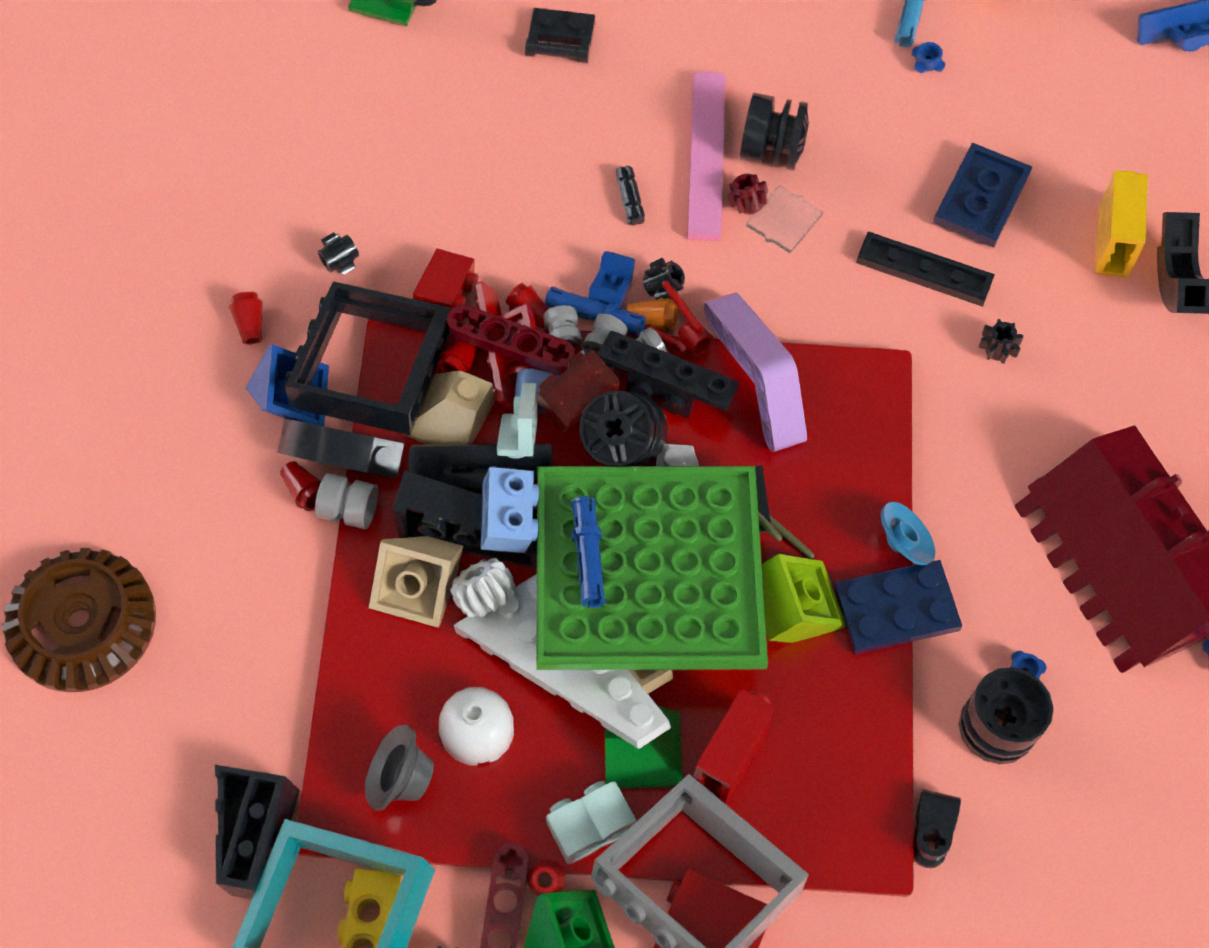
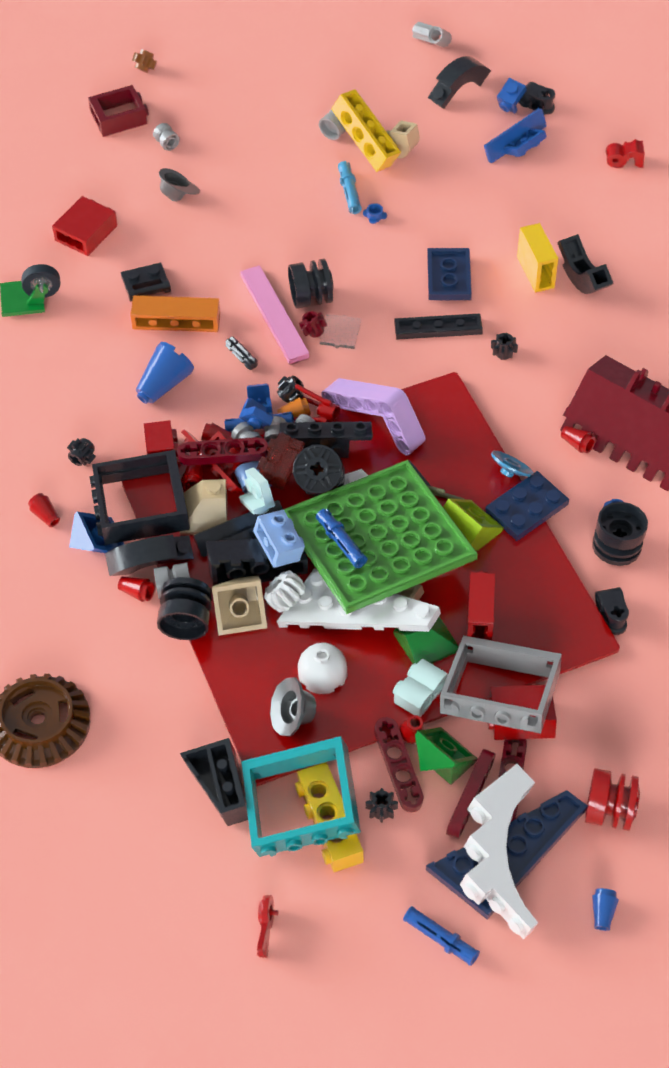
camera: 25 degrees left, 10 degrees down
(334, 553) = (184, 608): none -> black wheel
(502, 184) = (163, 373): none -> blue cone
(572, 100) = (175, 313): none -> orange brick
(586, 299) = (255, 414): none -> blue bracket
(1031, 534) = (579, 439): none -> red cone

